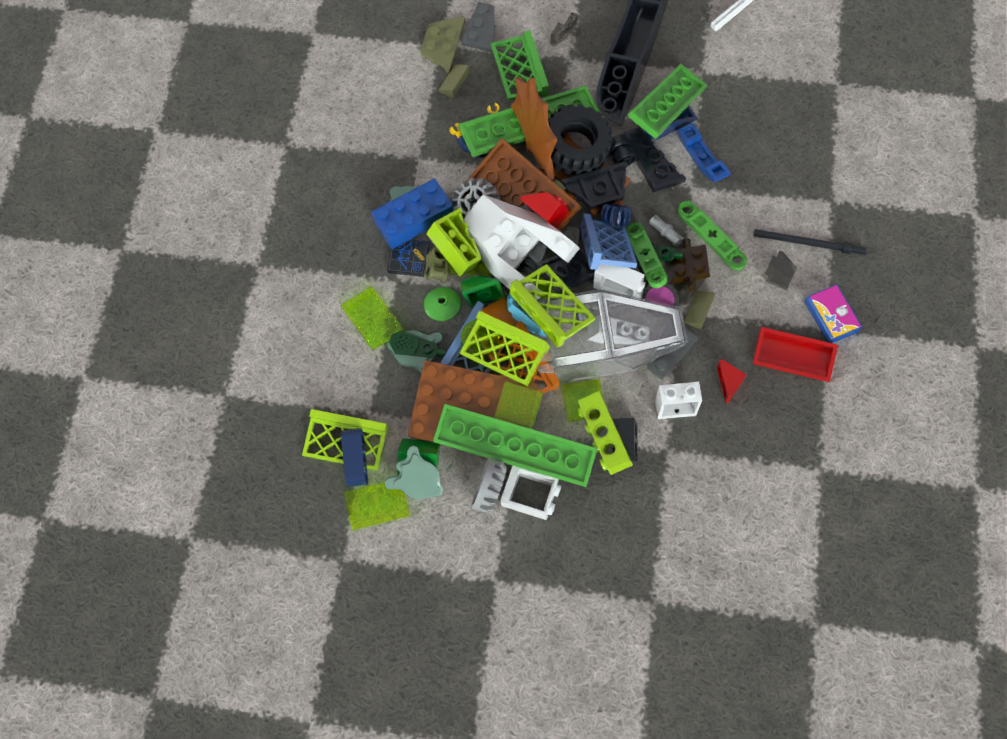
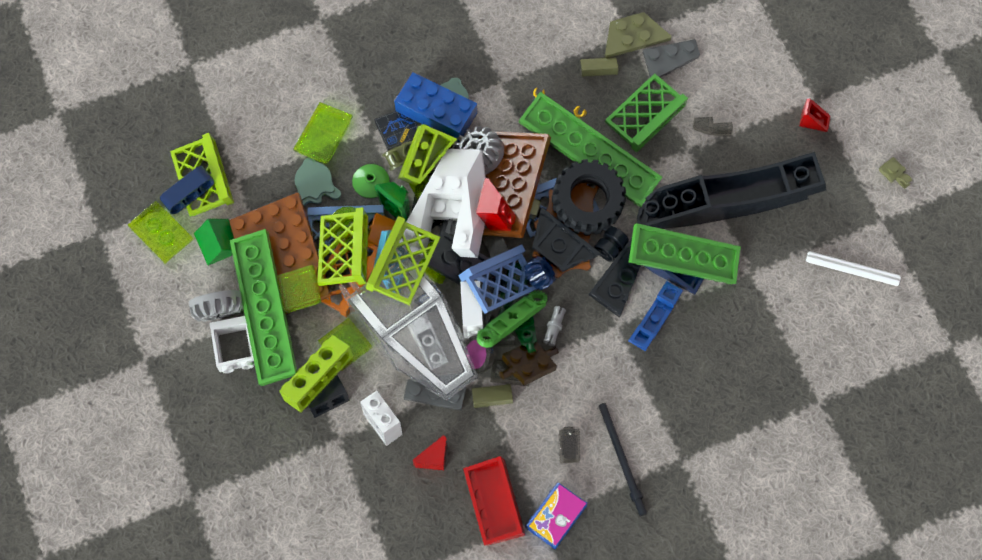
camera: 55 degrees right, 0 degrees up
(417, 345) = (316, 183): dark green piece -> none
(417, 477) = (195, 247): sand green tile -> none
(533, 117) = (571, 154): dark orange animal -> none
(721, 244) = (569, 380): bright green piece -> none

